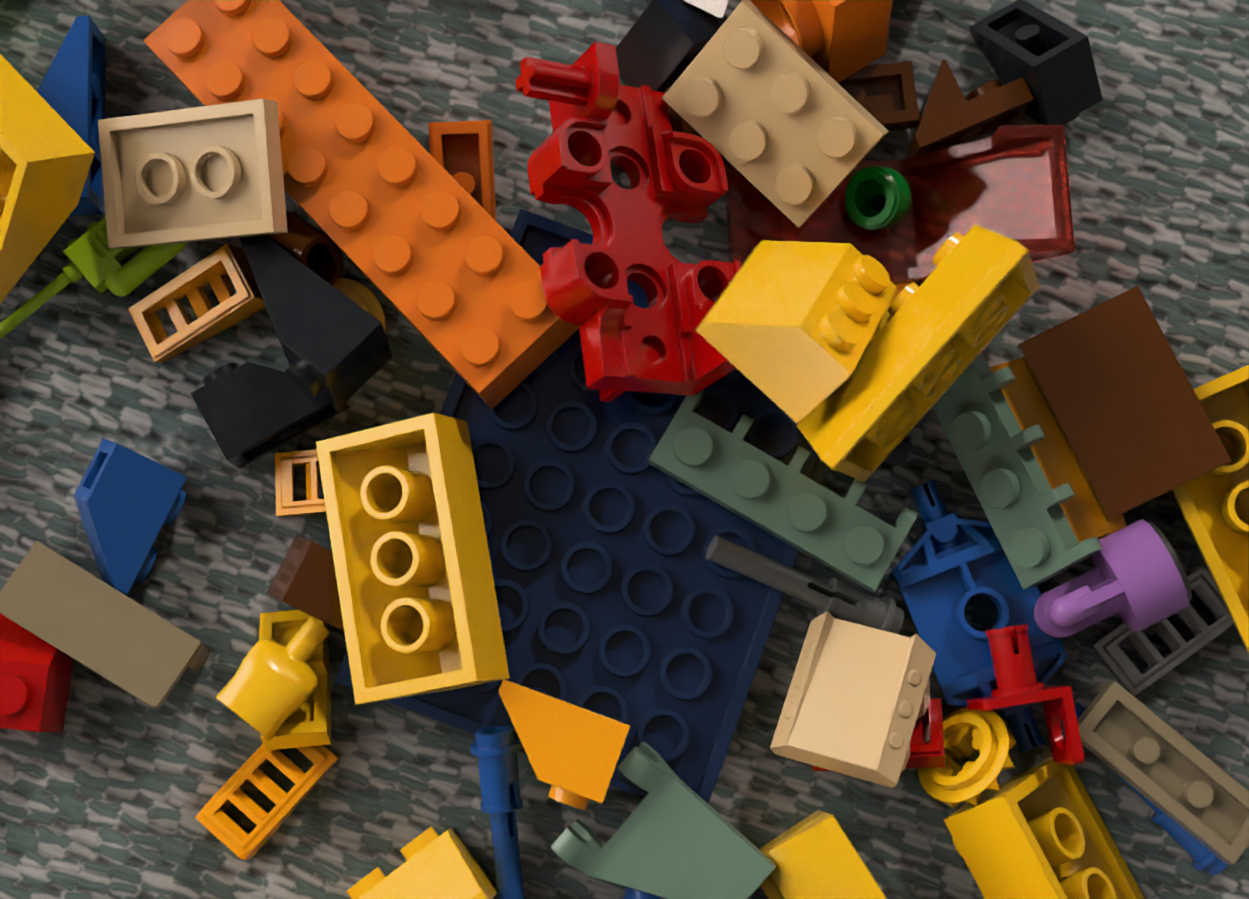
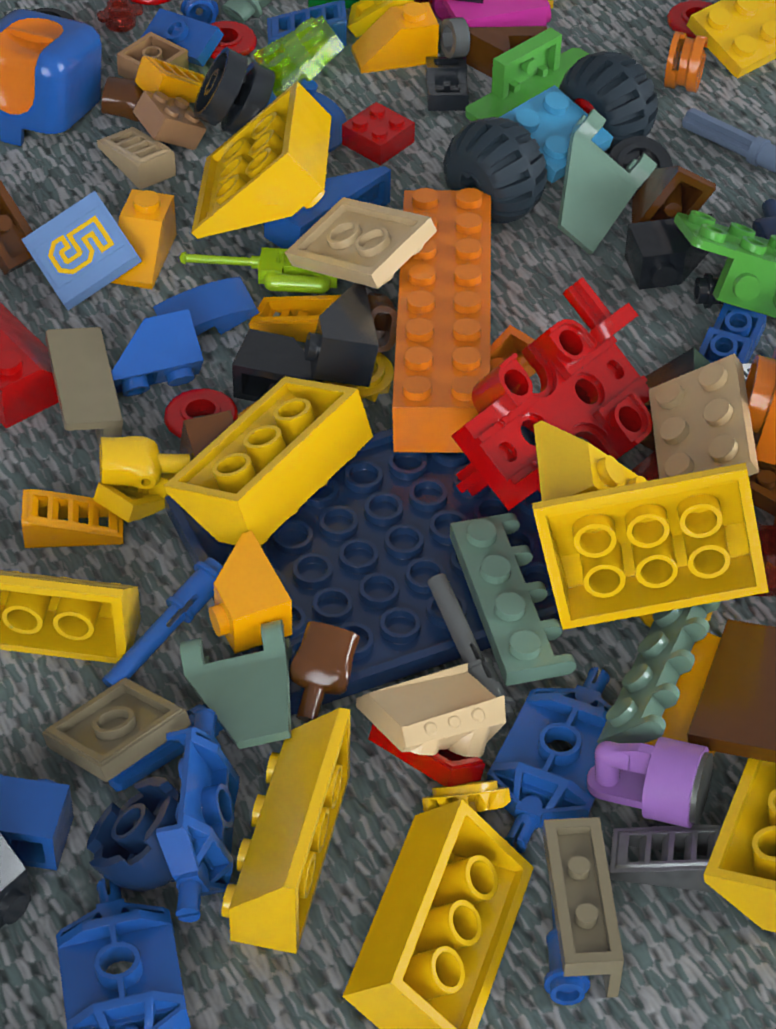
camera: 45 degrees right, 35 degrees down
(98, 389) = (215, 304): none -> blue slope
(216, 522) = (196, 403): none -> red piece
(709, 747) = (322, 665): none -> reddish brown piece
(1018, 686) = (537, 782): red bracket -> none

